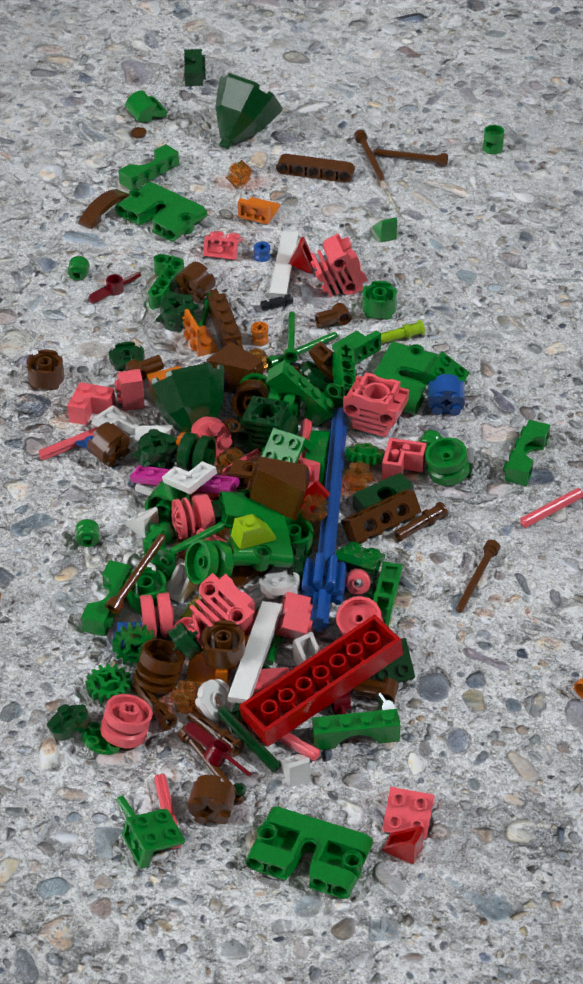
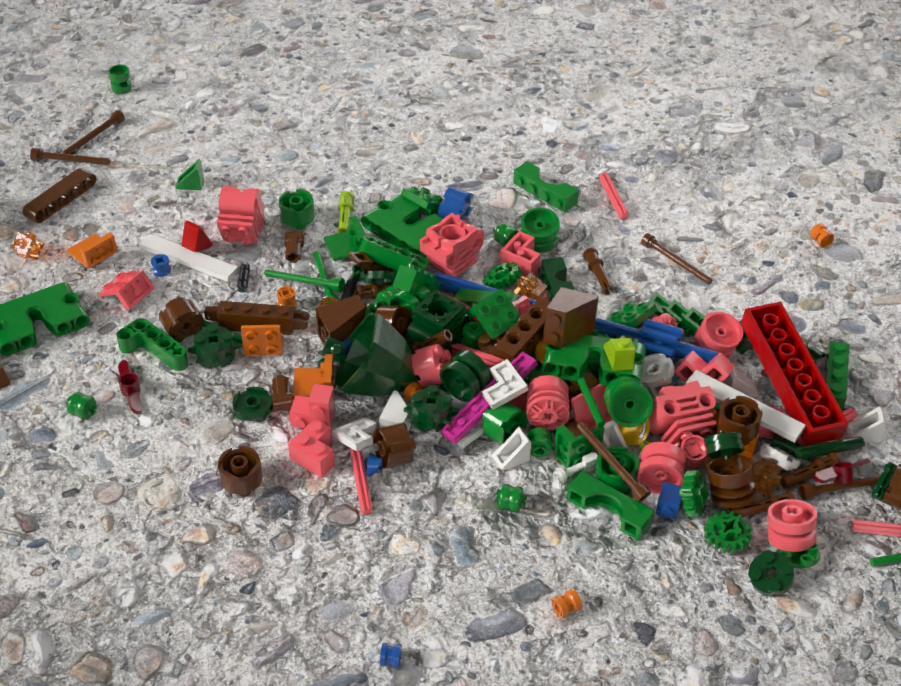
camera: 70 degrees left, 0 degrees up
(354, 524) = (586, 281): reddish brown brick -> none

